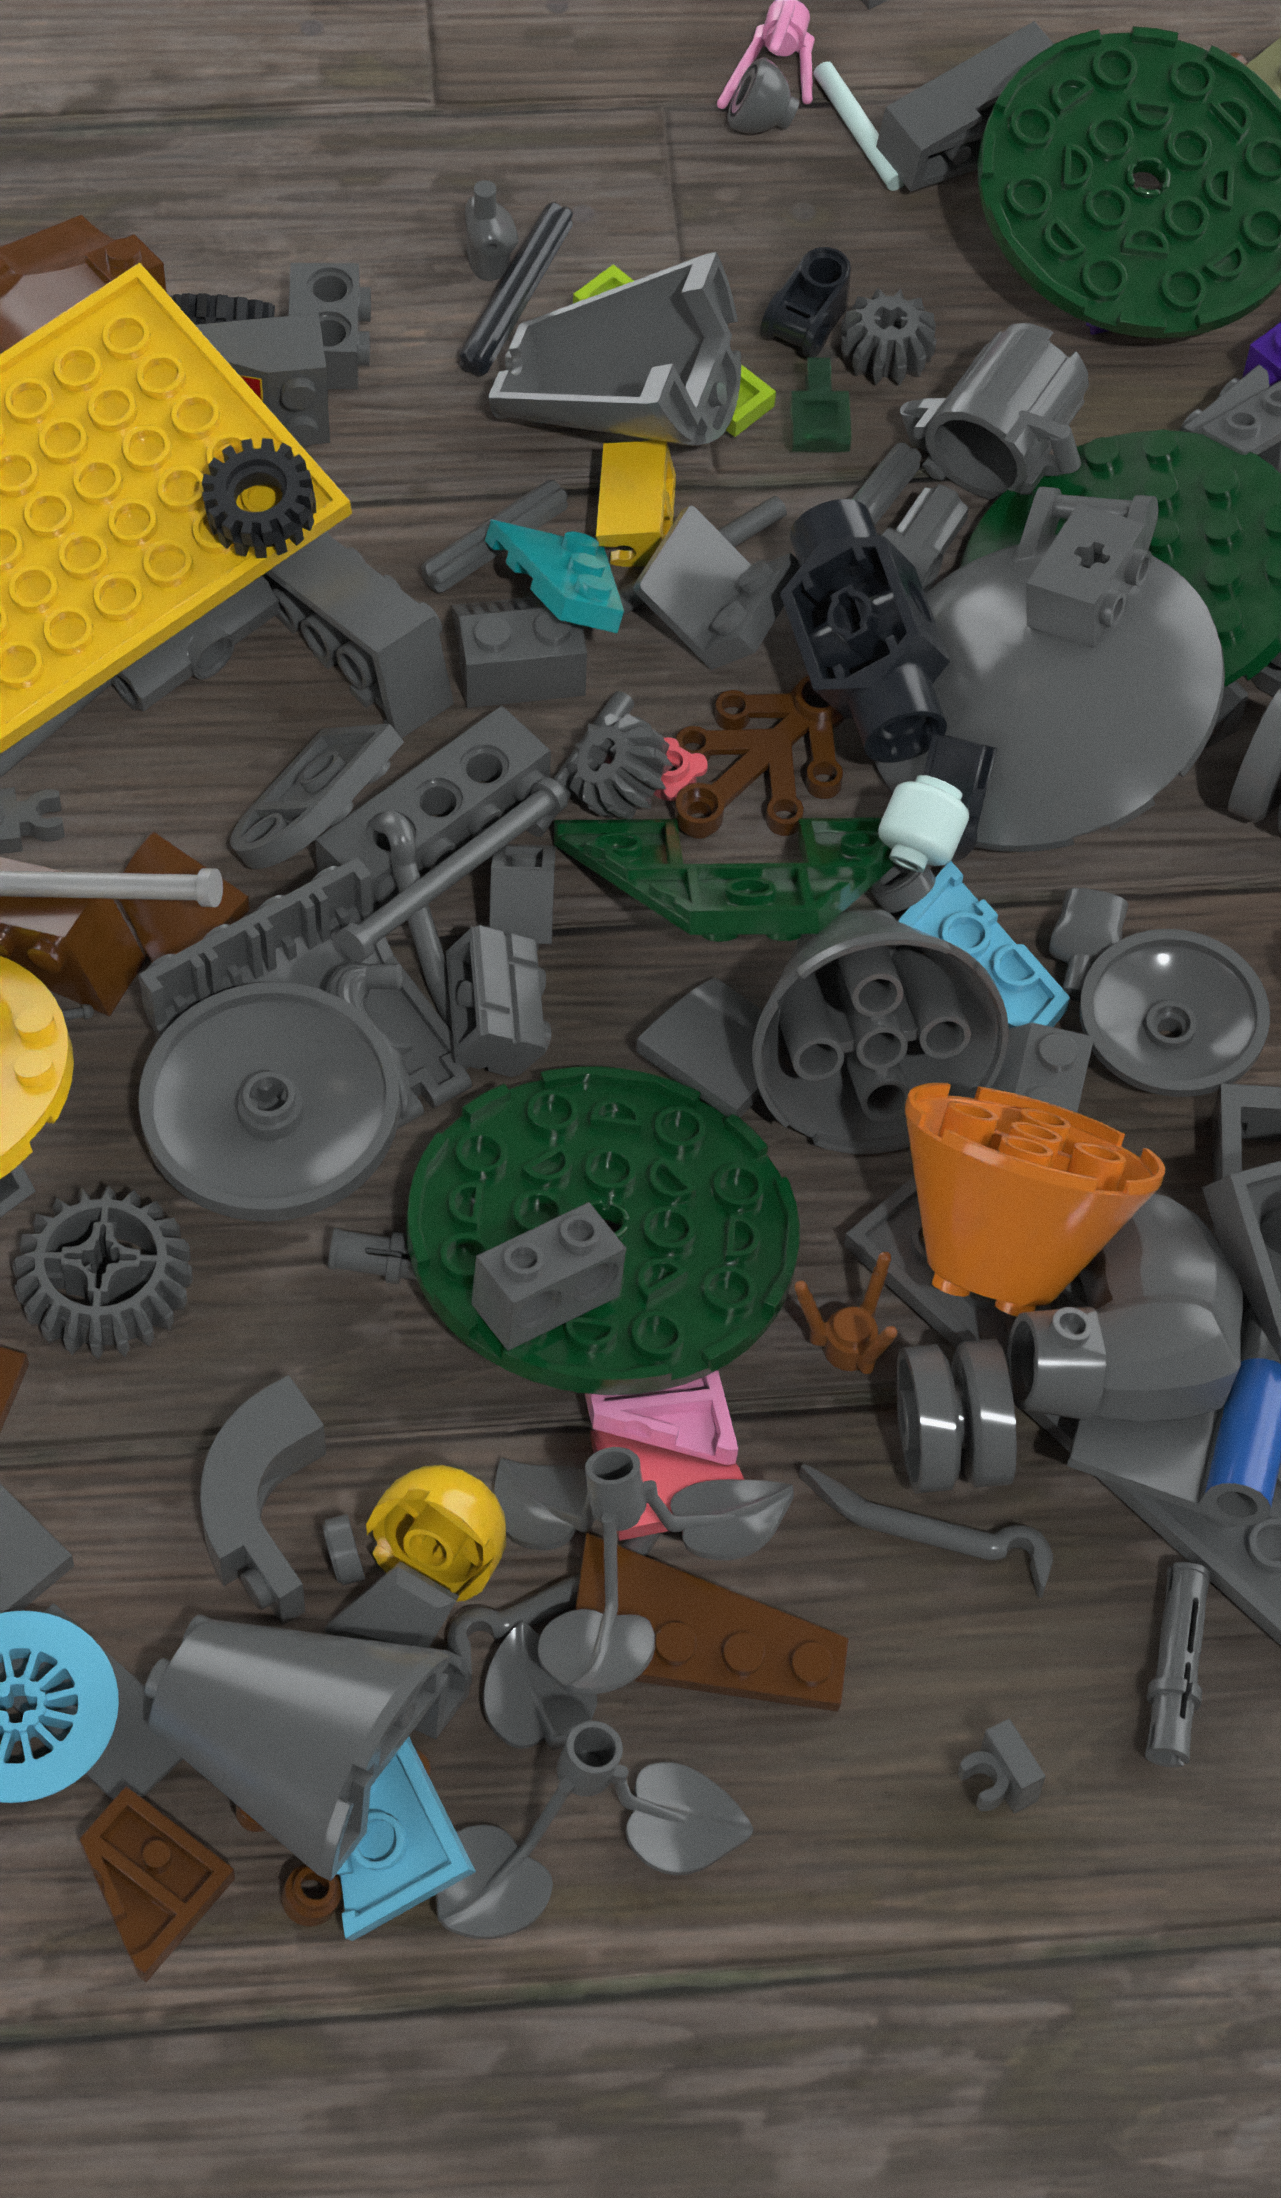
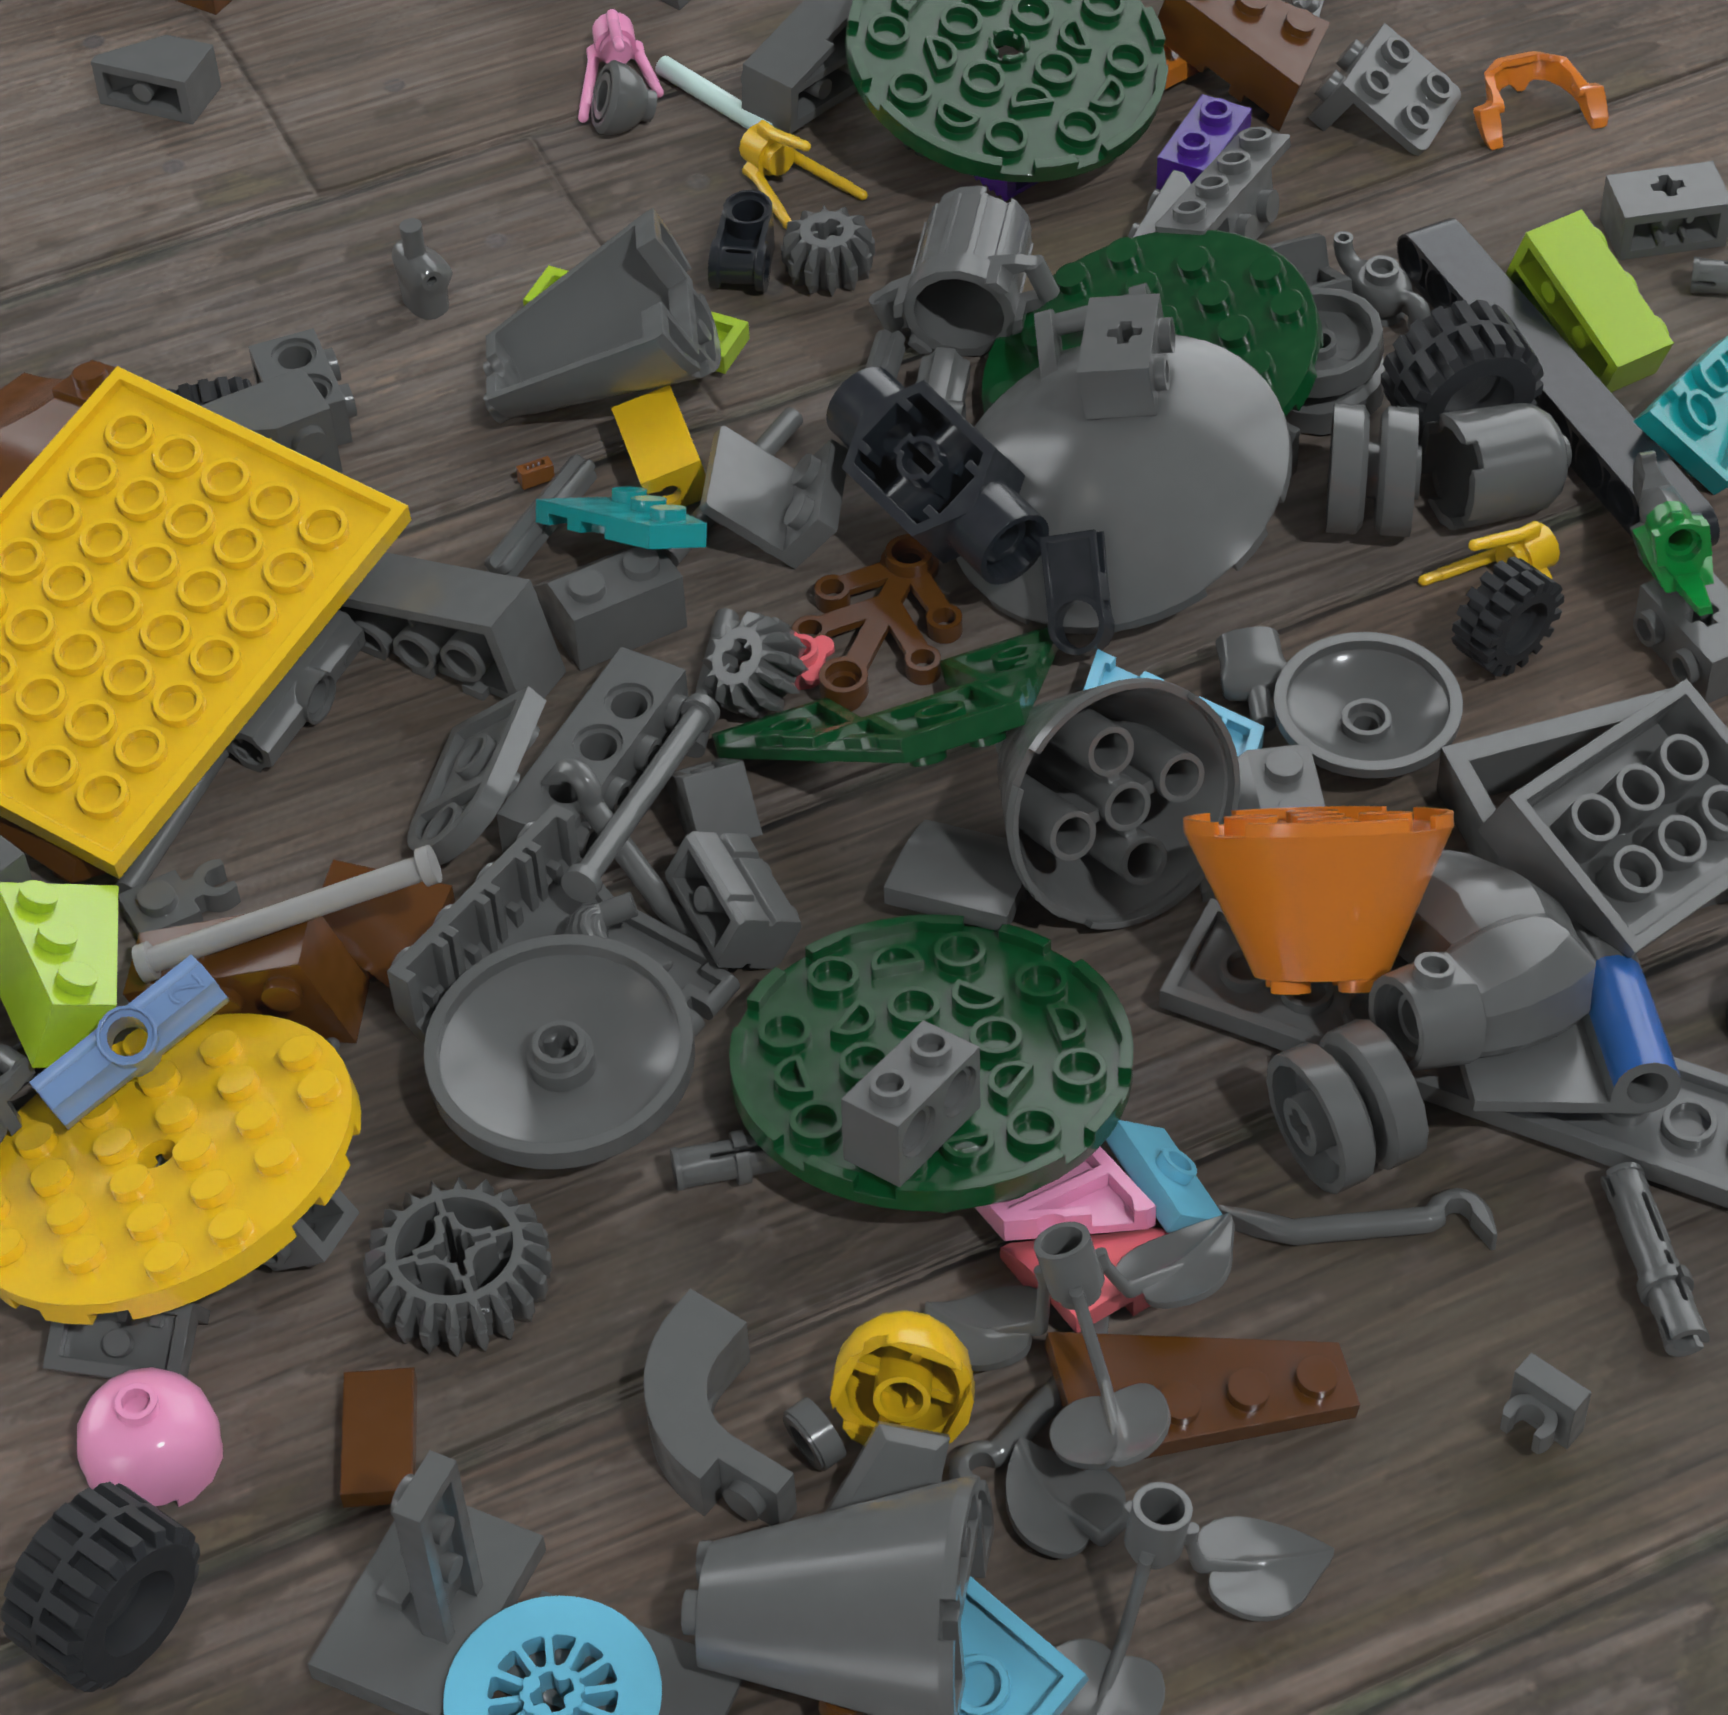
camera: 15 degrees left, 10 degrees down
(259, 468) = (317, 498): black tyre -> none
(511, 483) = (535, 472): none -> dark orange piece
(516, 289) = (465, 315): black axle -> none
(765, 1420) = (1162, 1174): none -> medium azure plate
(818, 414) = (795, 331): clear green plate -> none
(851, 1333) = (1207, 1076): dark orange plant -> none
(884, 210) = (773, 153): none -> yellow plant
(902, 888) = (1066, 676): dark grey tile -> none
(923, 823) = (1066, 615): light aqua head -> none

